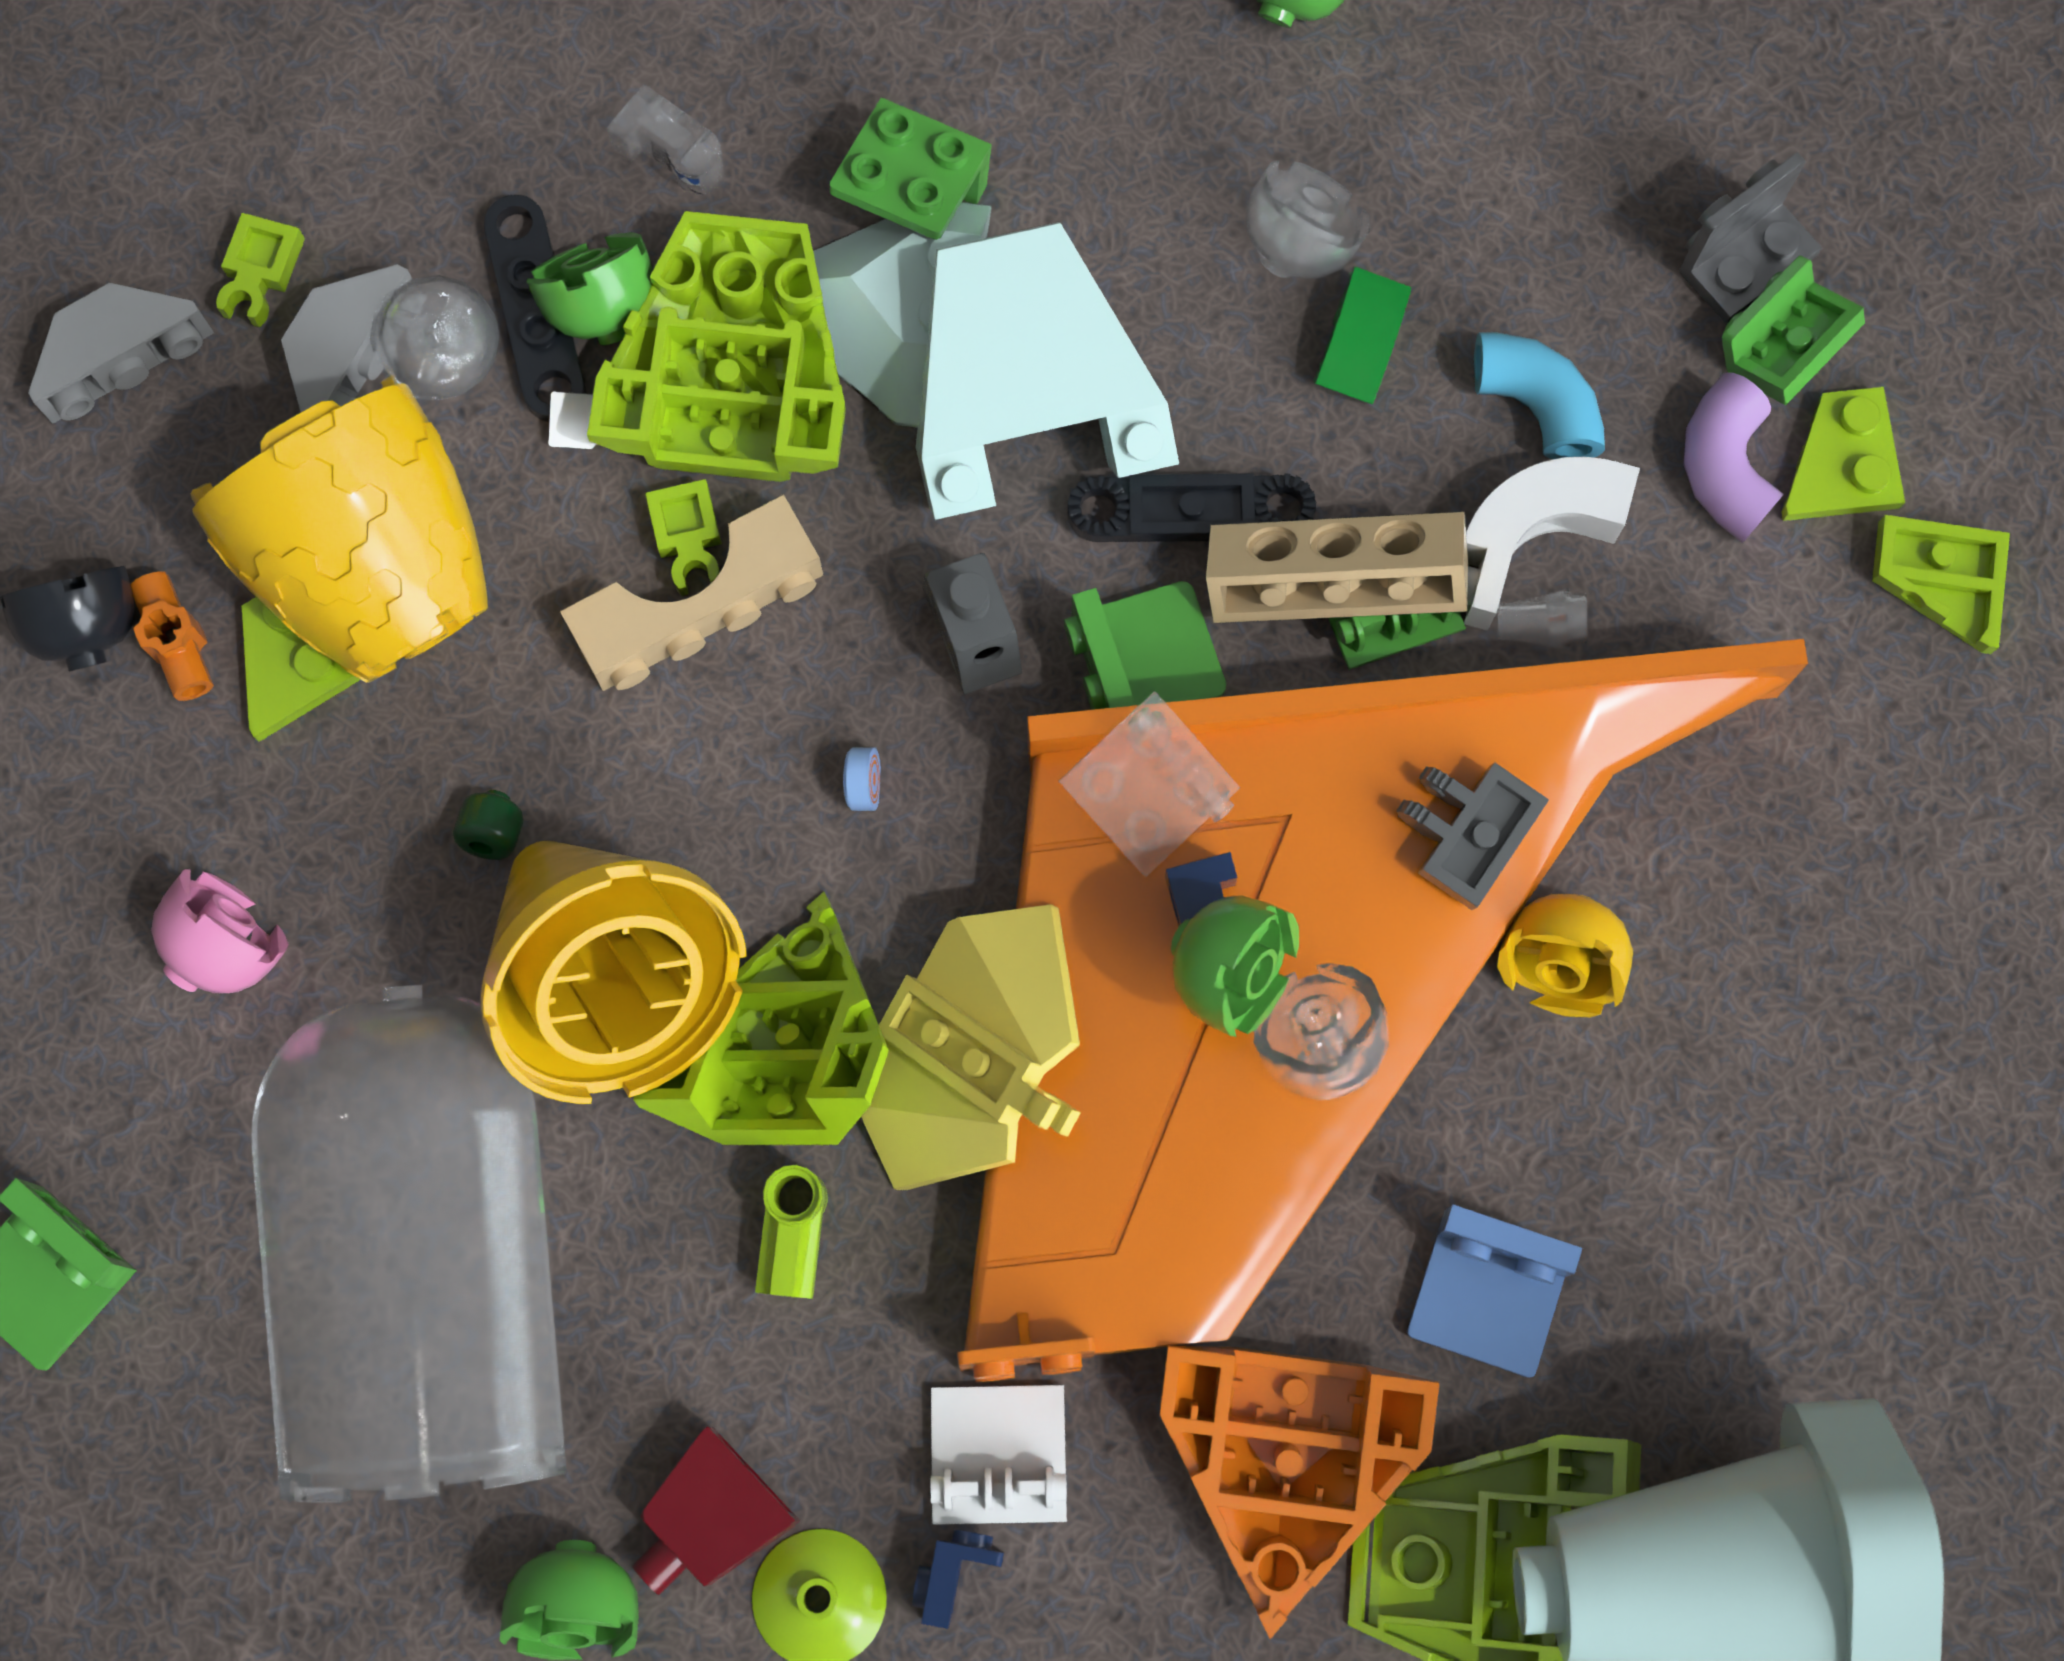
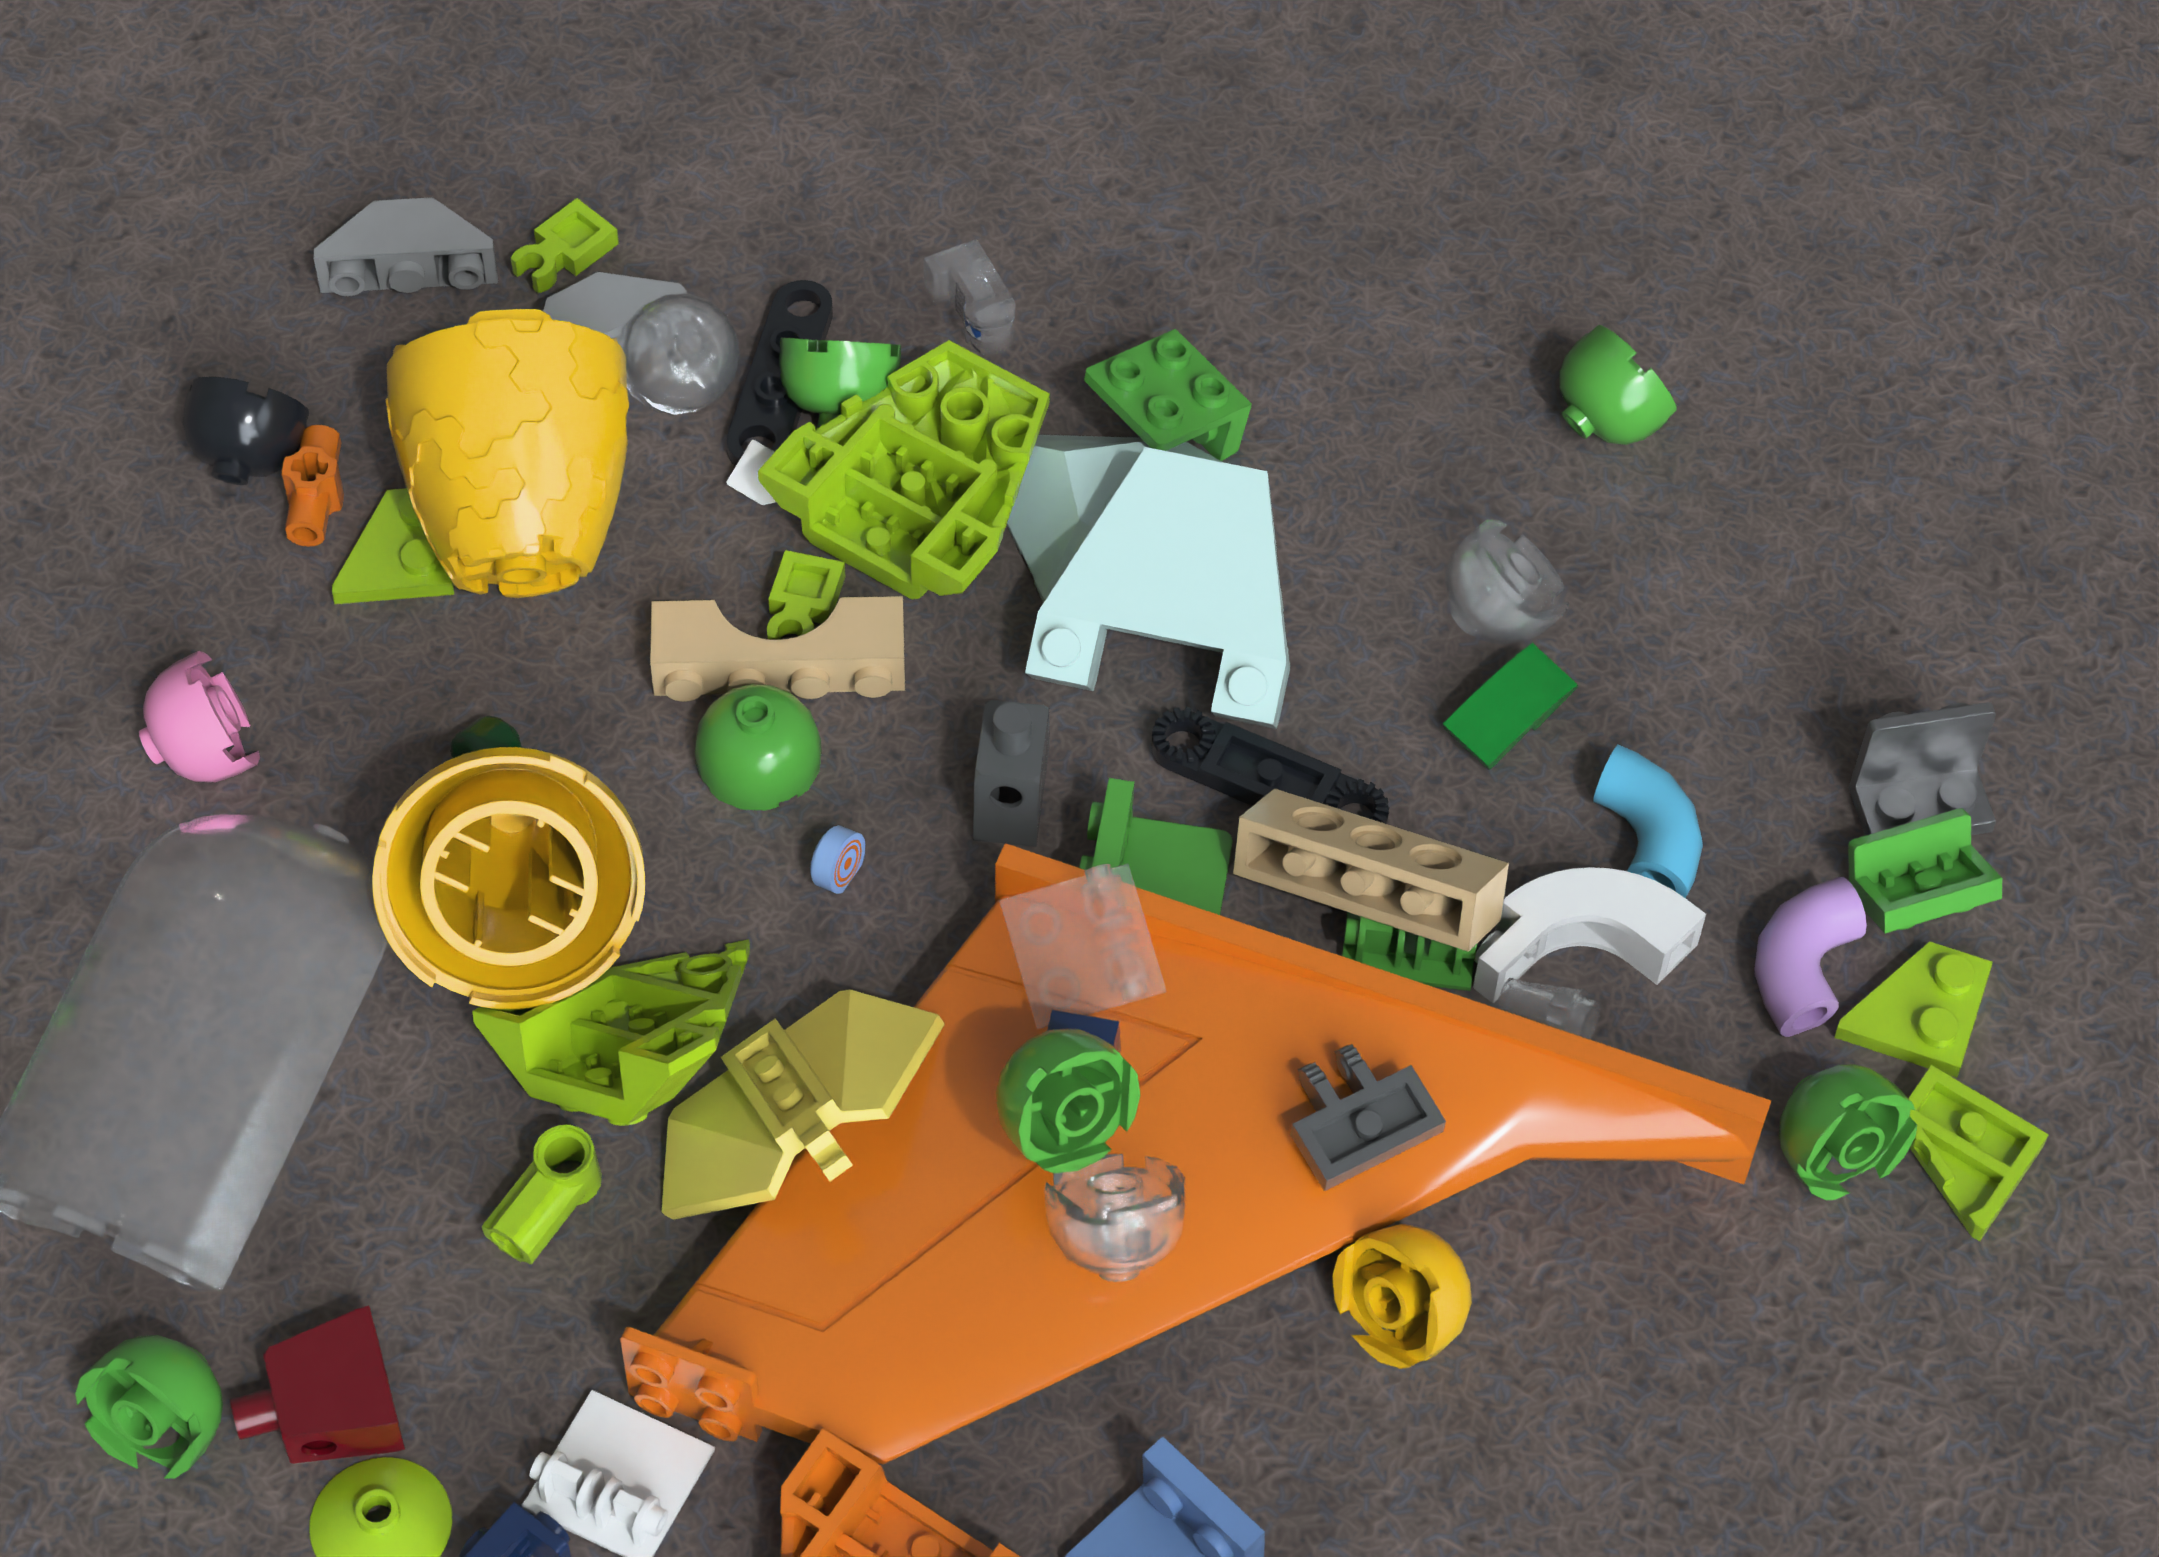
camera: 25 degrees right, 20 degrees down
(729, 703) = (757, 747): none -> bright green cylinder
(1843, 610) = (1845, 1116): none -> bright green cylinder

